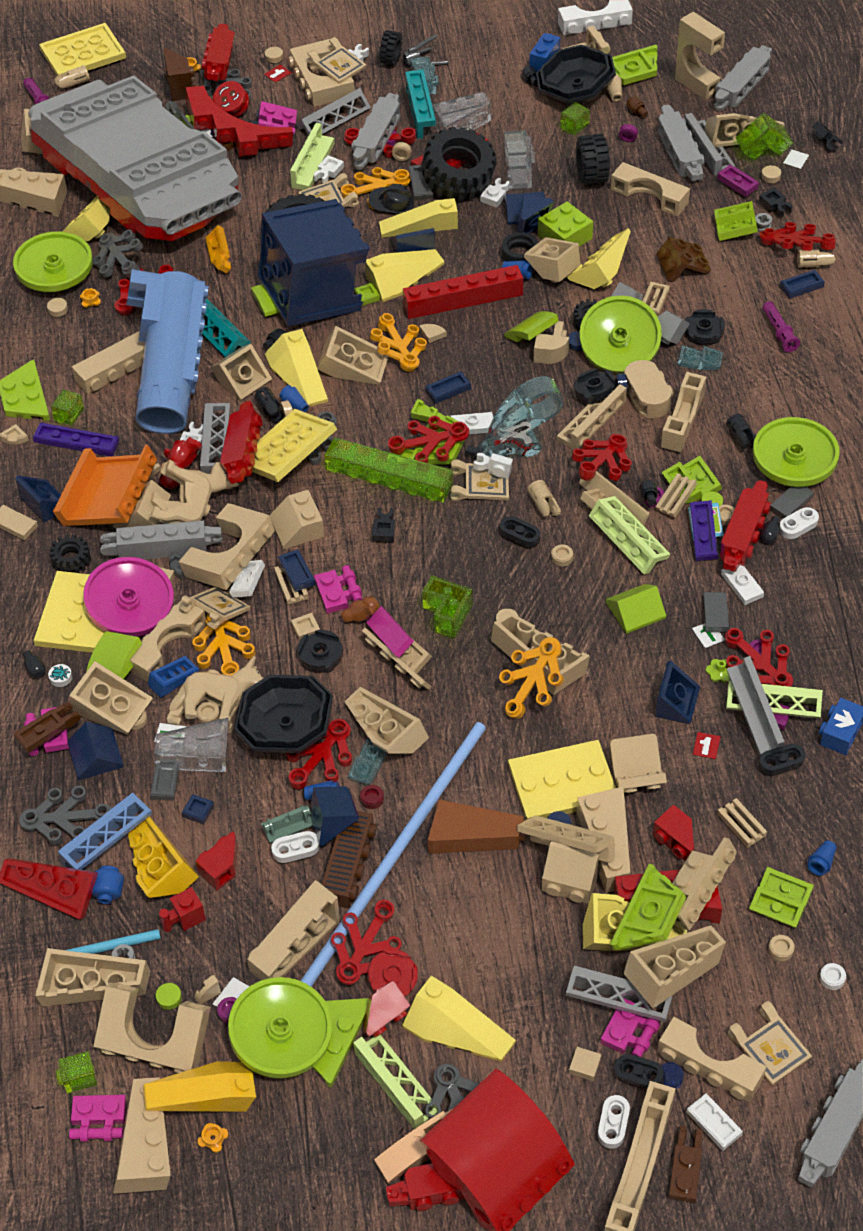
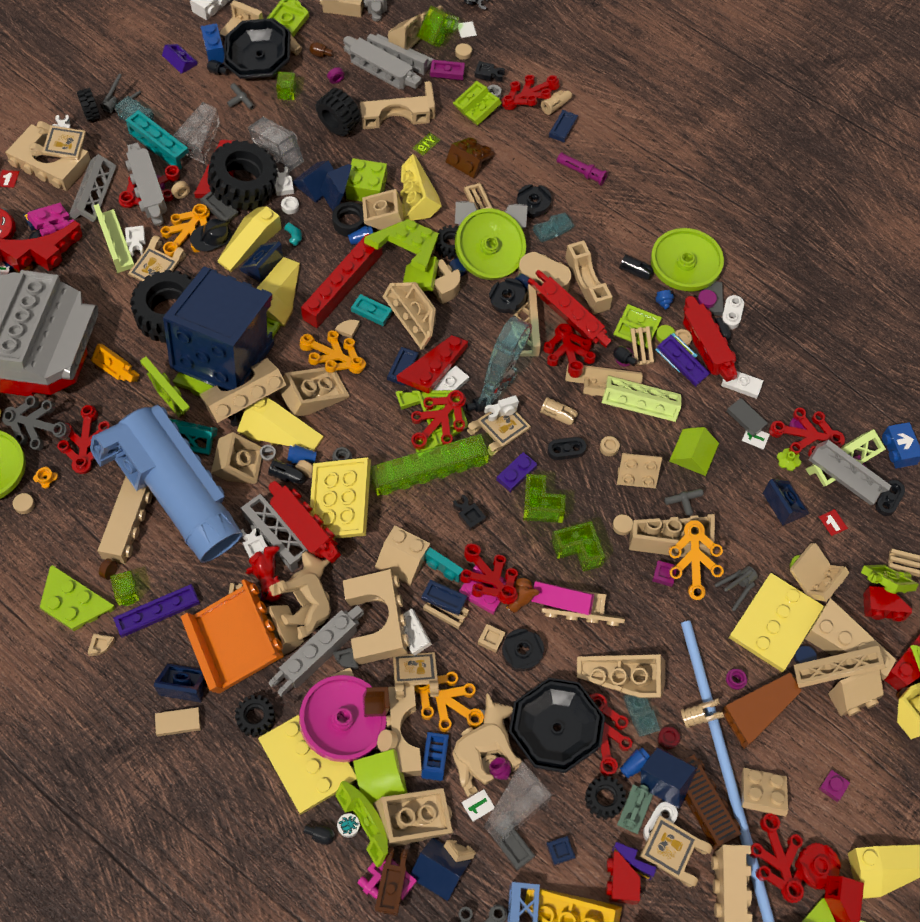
camera: 45 degrees left, 10 degrees up
(70, 384) = (108, 568): none -> reddish brown tile
(78, 661) = (353, 800): none -> lime slope
(120, 751) = (459, 852): none -> tan tile
(144, 631) = (387, 740): none -> tan tile
(162, 599) = (376, 701): none -> reddish brown panel
(208, 713) = (500, 768): none -> magenta plate
(235, 288) = (169, 394): none -> lime wing
(244, 853) = (629, 854): none -> dark purple slope
(268, 786) = (617, 792): none -> black tyre
(271, 379) = (266, 449): none -> light grey hinge
(281, 868) = (671, 848): none -> tan flag
(290, 321) = (226, 403): none -> tan arch
(319, 542) = (447, 567): none -> teal plate
(345, 595) = (505, 593): none -> red plant
(405, 887) = (764, 792): none -> tan plate
(412, 793) = (697, 714): none -> tan hinge
(449, 552) = (539, 504): none -> clear neon green brick
(459, 523) = (516, 472): none -> dark purple plate
(462, 237) = (295, 233): none -> teal arm
(465, 329) = (371, 310): none -> teal plate
(468, 399) = (432, 367): none -> red wing
(474, 932) = (834, 785): none -> magenta plate
(477, 790) = (740, 675): none -> magenta plate
(482, 213) = (290, 205): none -> white tile
(493, 677) = (662, 574): none -> magenta plate
(494, 347) = (412, 310): none -> tan wedge
(507, 52) = (178, 57): none -> dark purple slope
(528, 108) = (241, 96): none -> dark grey piece
(551, 287) = (410, 237): none -> lime wing
(561, 583) = (639, 470): none -> tan hinge
(570, 727) = (744, 578): none -> dark grey plant
(584, 635) = (684, 498): none -> dark grey piece
(634, 424) = (570, 309): none -> red hinge
(656, 231) = (426, 143): none -> clear neon green sticker
(693, 195) = (430, 98): none -> tan tile
(698, 810) = (891, 579): none -> lime plate
(742, 472) = (664, 298): none -> blue plate
(780, 494) = (707, 298): none -> magenta tile

